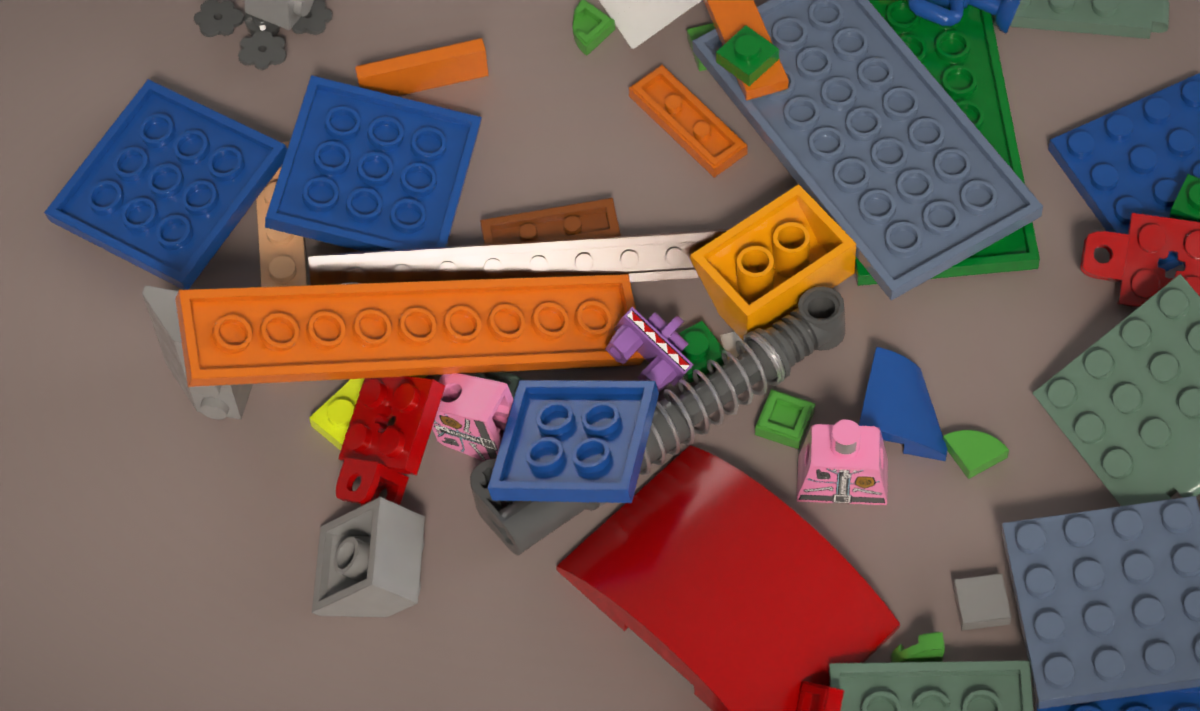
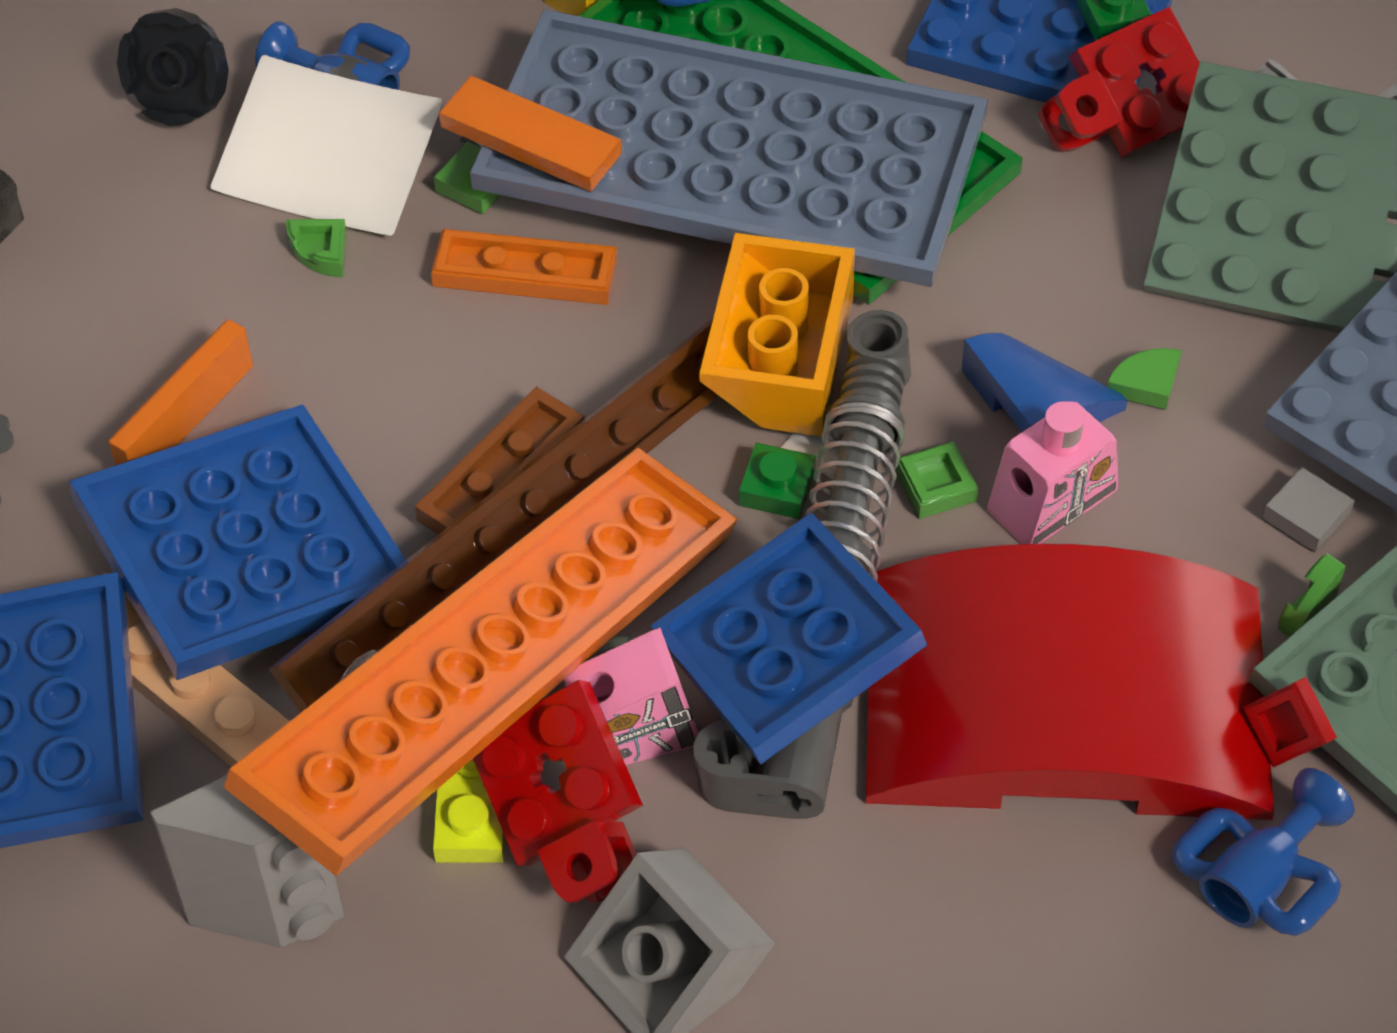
camera: 45 degrees left, 5 degrees down
(655, 342) = (745, 493): medium lavender hips -> none
(747, 55) = (558, 140): green plate -> none

